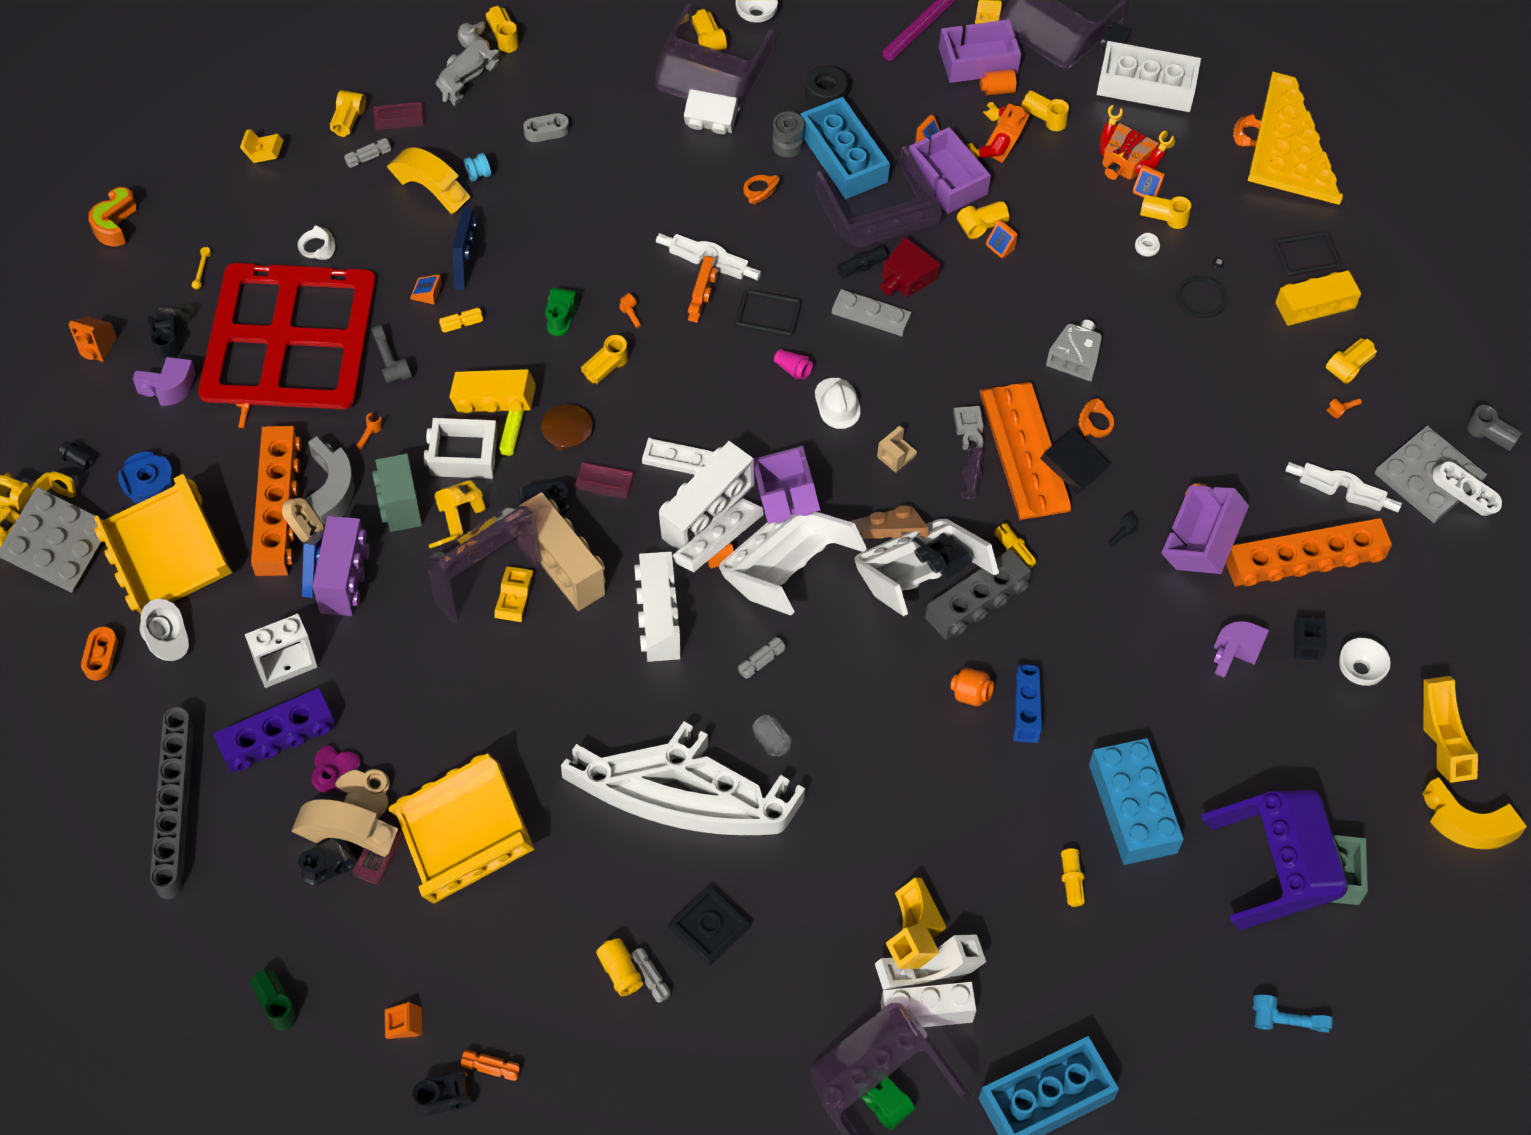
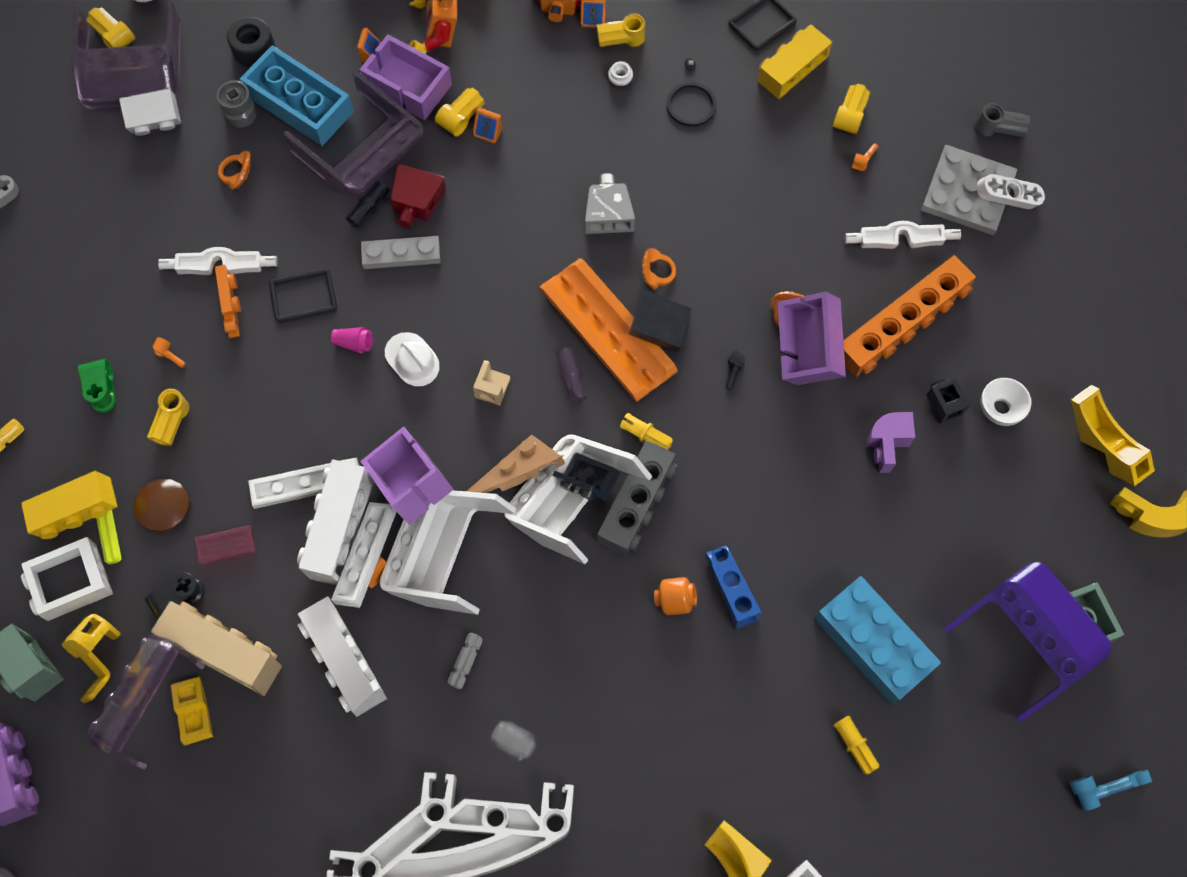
camera: 25 degrees left, 10 degrees up
(969, 422) = (546, 326): light grey plate -> none

